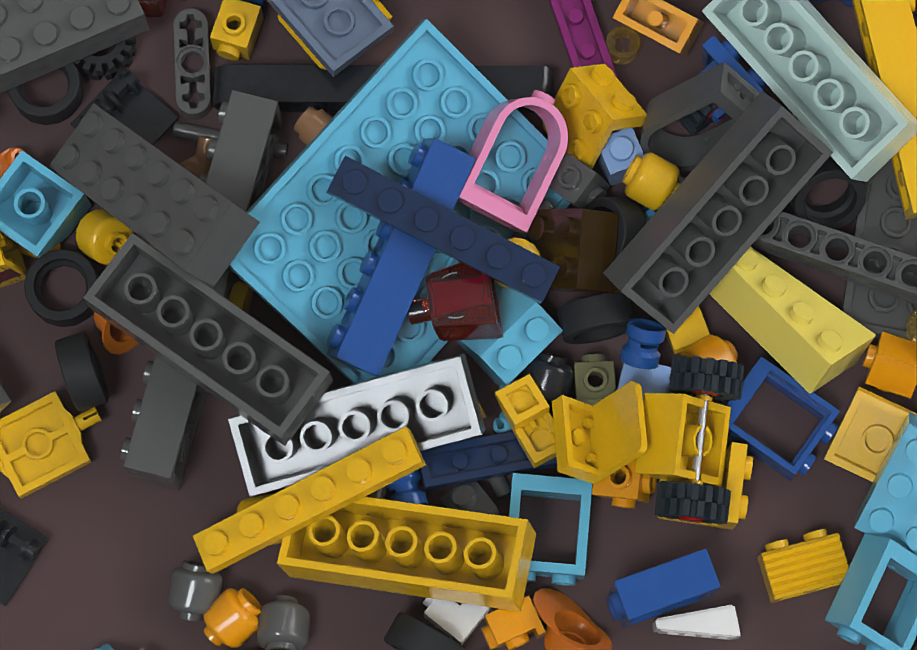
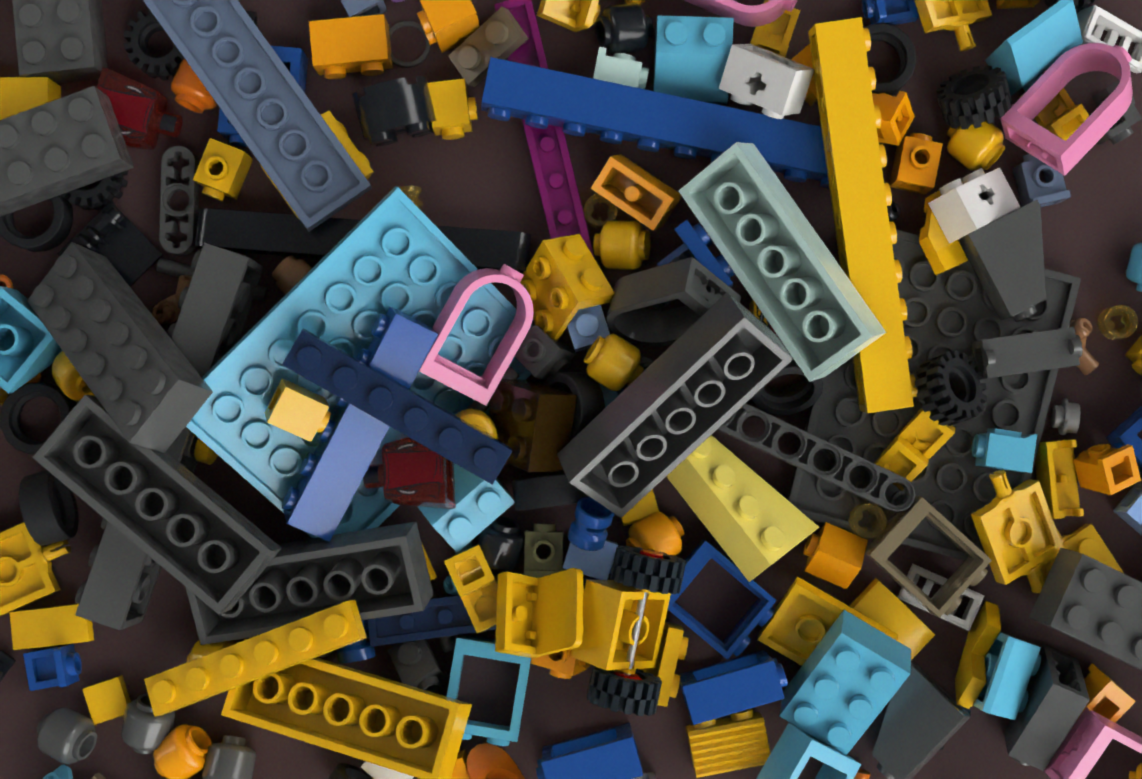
camera: 10 degrees right, 10 degrees up
(86, 498) = (49, 627): none -> yellow slope
(90, 539) = (52, 667): none -> blue bracket
(109, 608) = (66, 735): none -> dark grey head
(148, 571) = (107, 699): none -> yellow tile
(340, 242) = (297, 410): none -> yellow brick
(648, 73) = (622, 244): none -> yellow head
(802, 501) = (732, 686): none -> blue window

